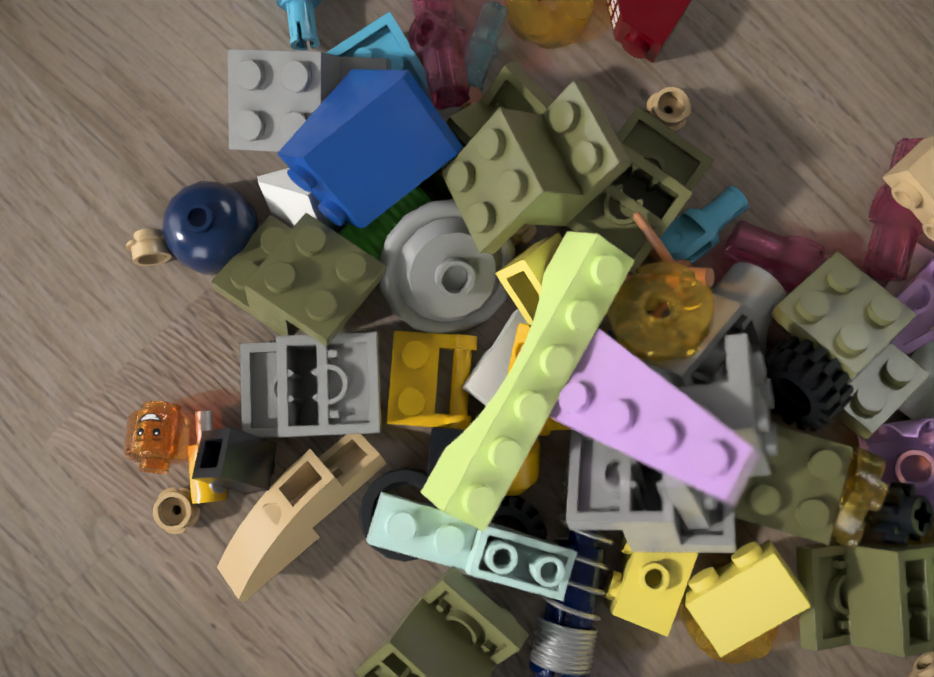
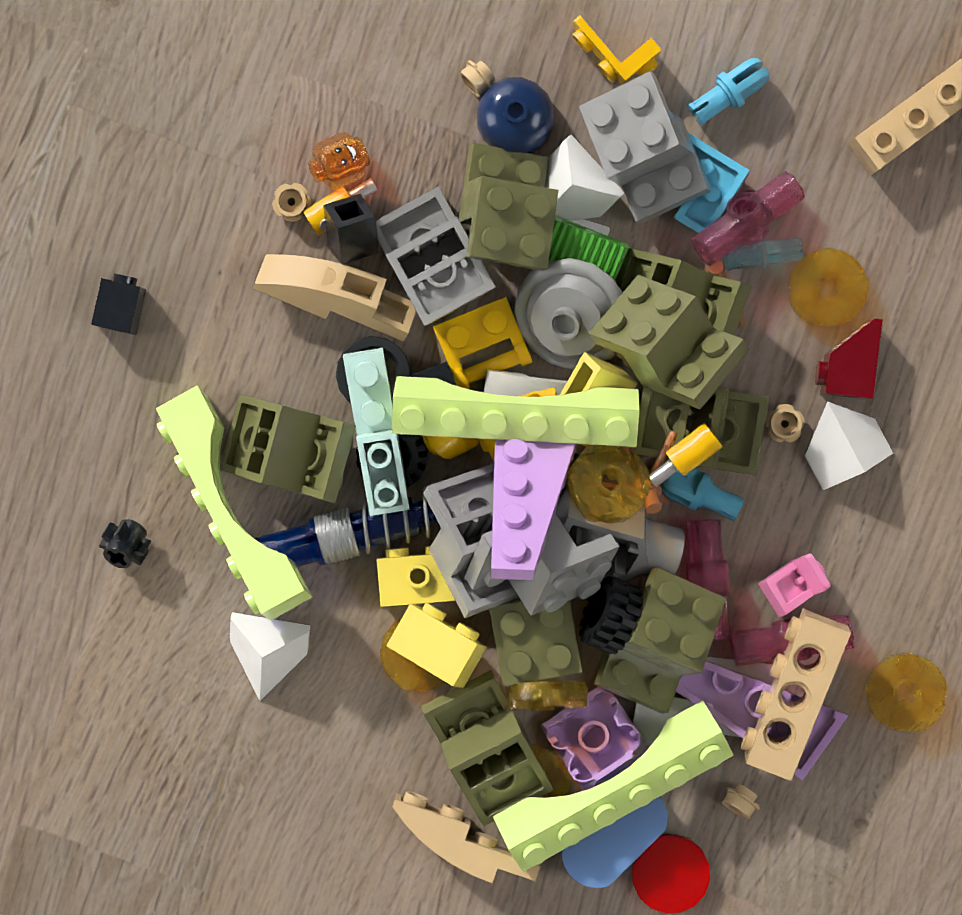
camera: 70 degrees right, 5 degrees up
(205, 102) = (636, 64): none -> yellow bracket
(368, 145) = (627, 212): blue slope -> none
(668, 208) = (687, 454): none -> yellow piece
(725, 61) = (845, 445): none -> white slope
(842, 177) = (794, 584): none -> bright pink bracket
(902, 515) = (552, 732): black gear -> none

